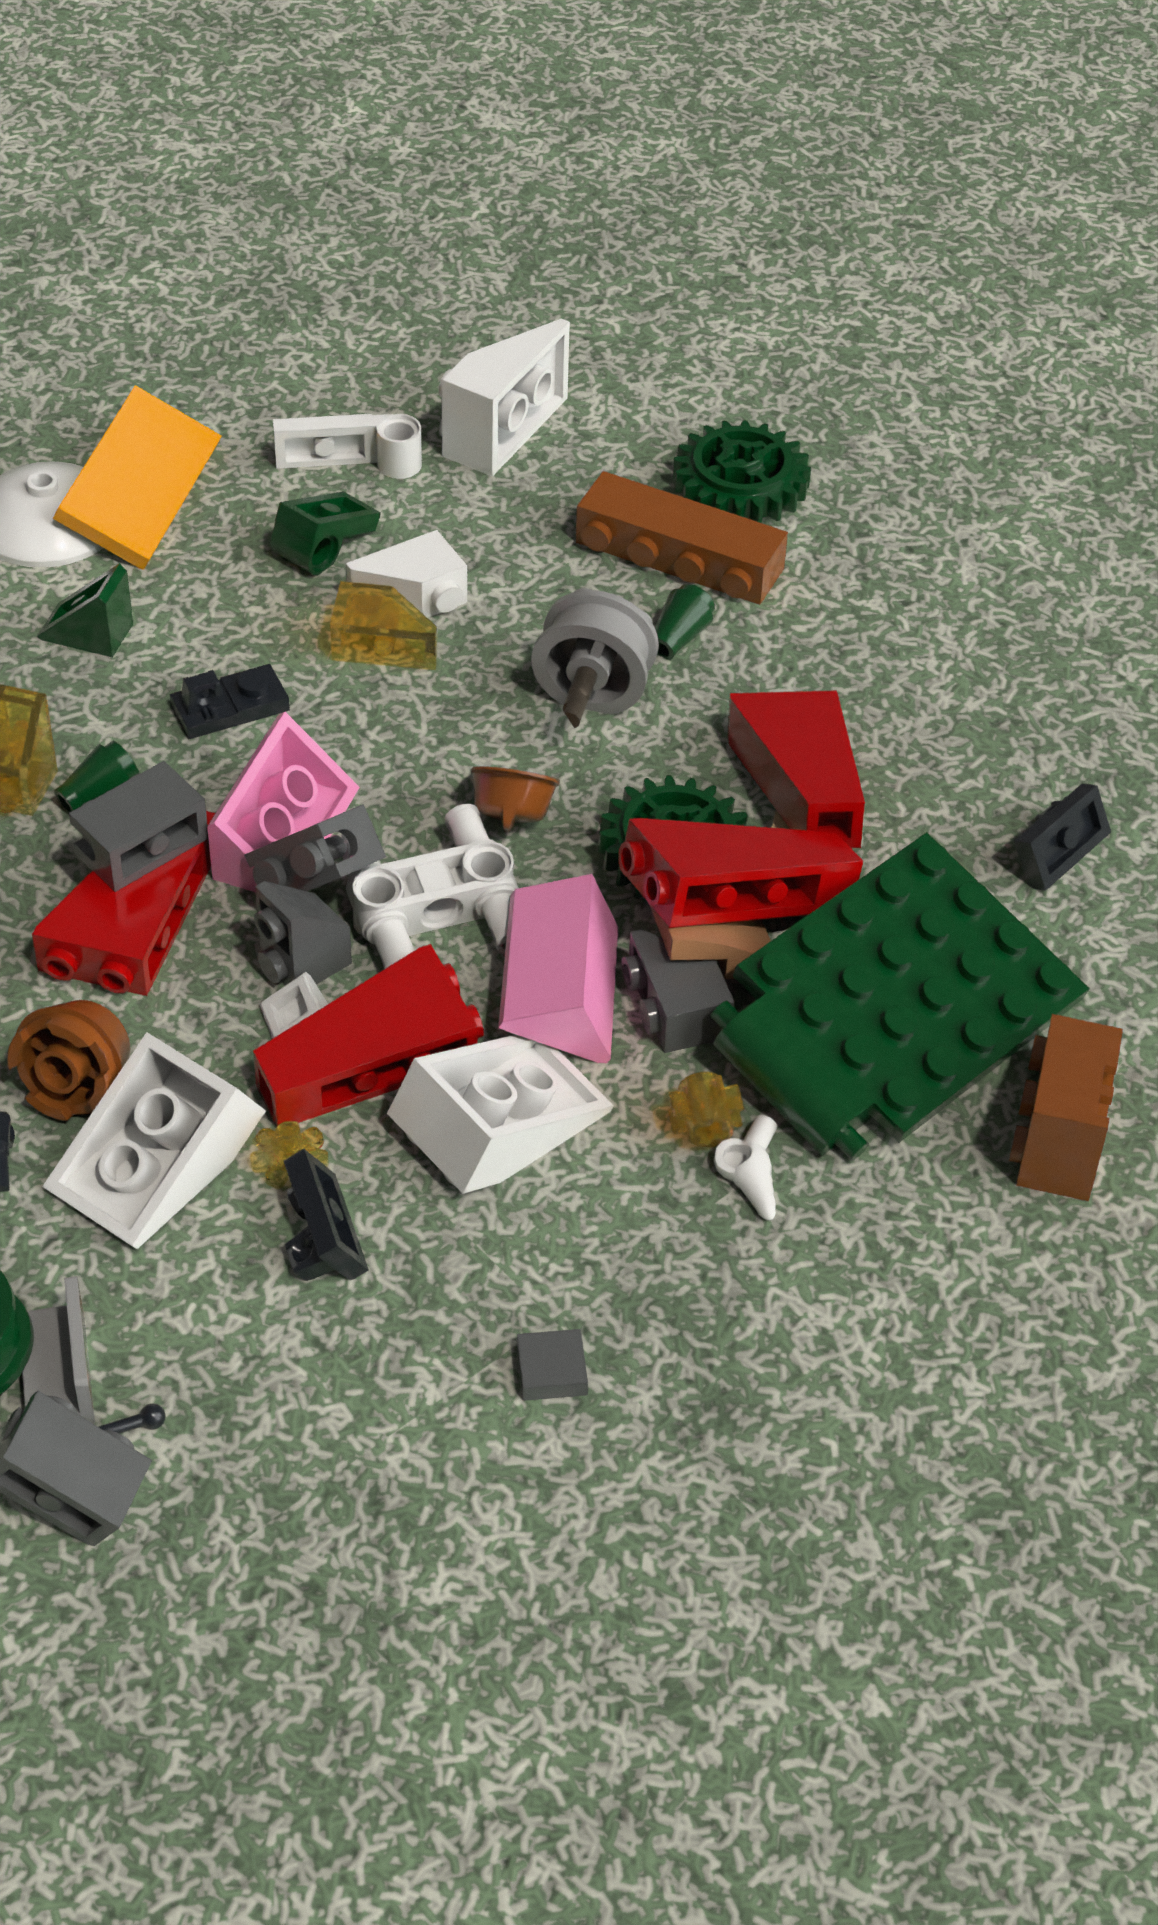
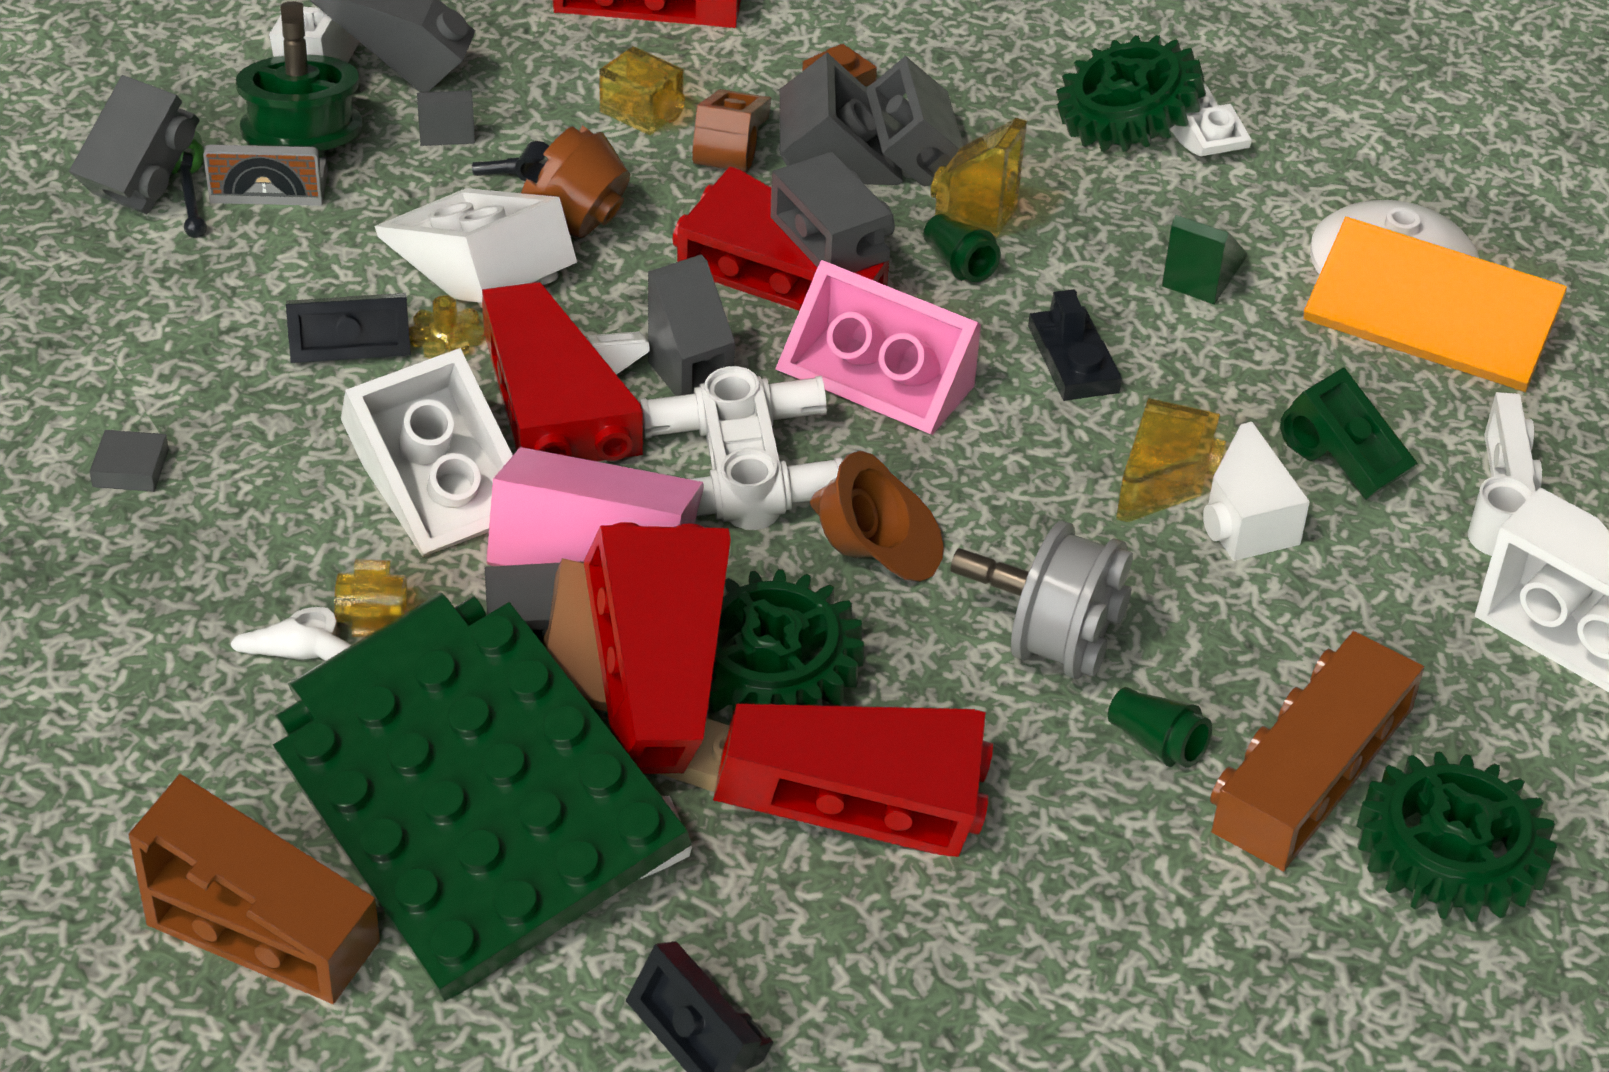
camera: 100 degrees right, 5 degrees down
(307, 859) = (774, 334): dark grey brick -> none

